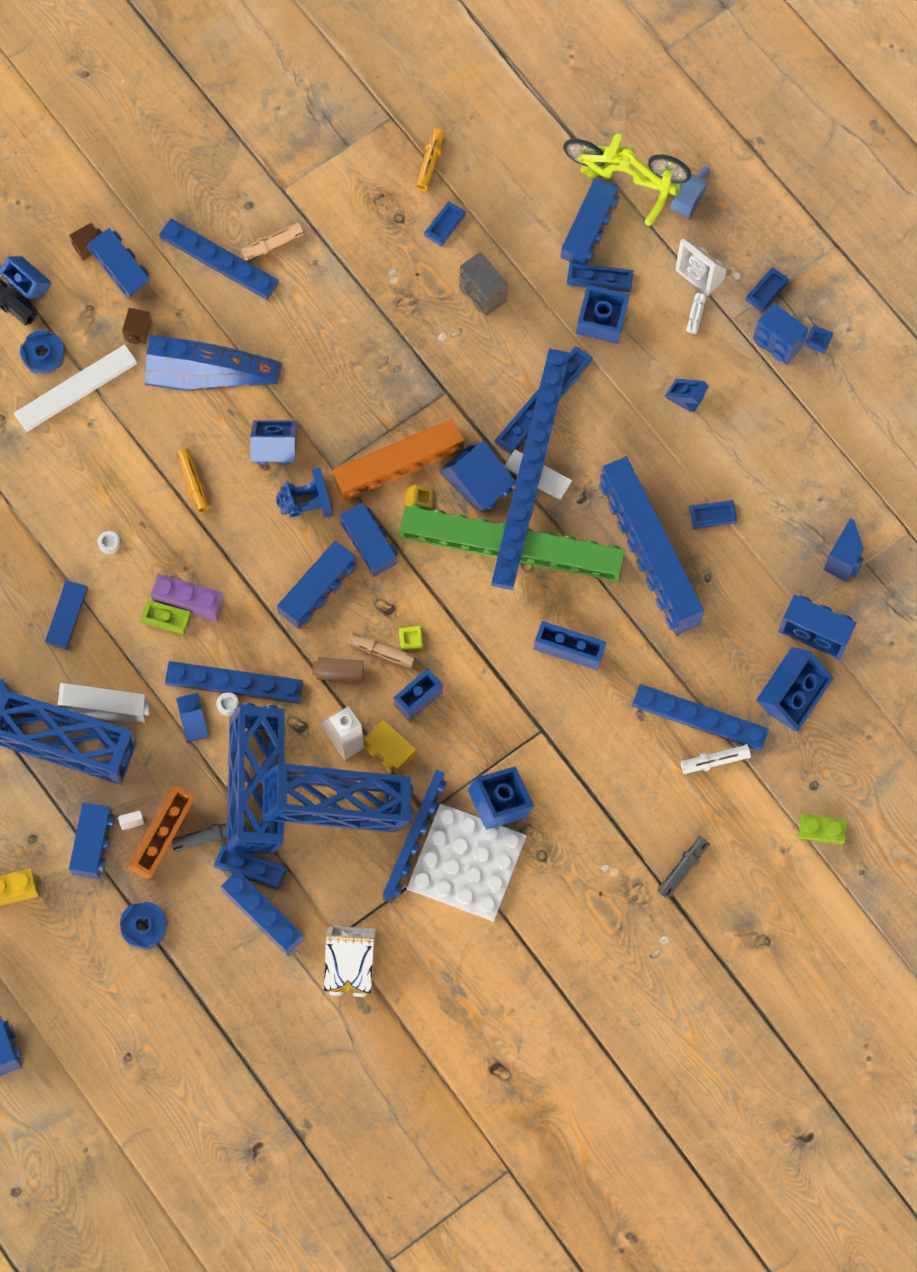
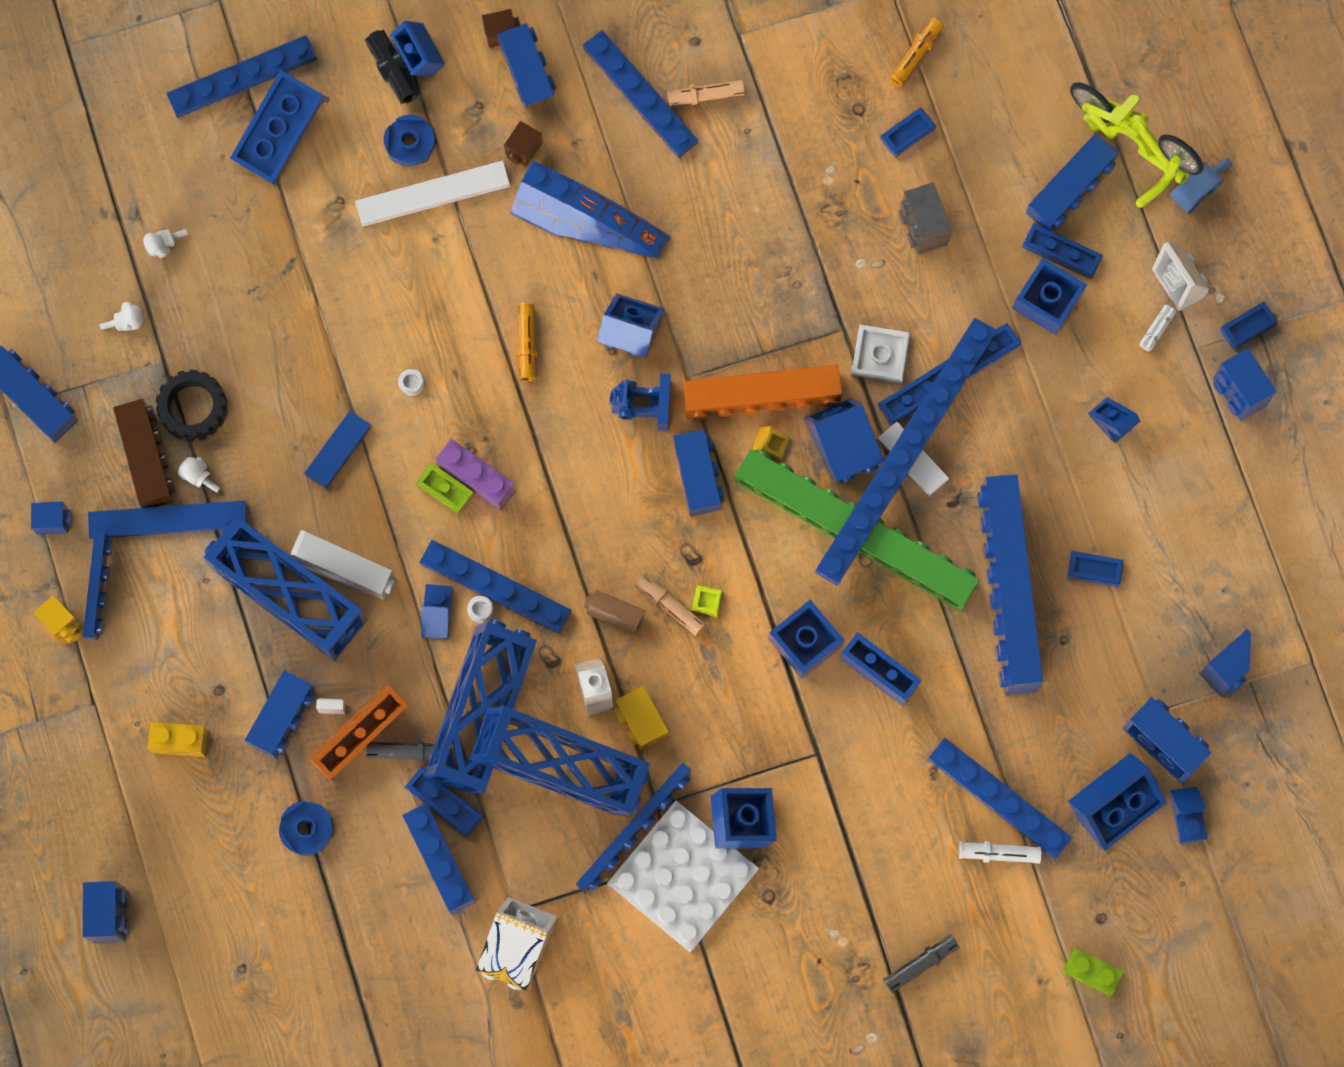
camera: 20 degrees right, 5 degrees up
(317, 584) = (623, 506): blue brick -> none
(418, 694) = (692, 669): blue brick -> none
(483, 401) = (880, 354): none -> white tile
(502, 641) = (806, 639): none -> blue brick
(819, 339) = (1288, 403): blue tile -> none
(853, 680) = (1188, 814): none -> blue slope

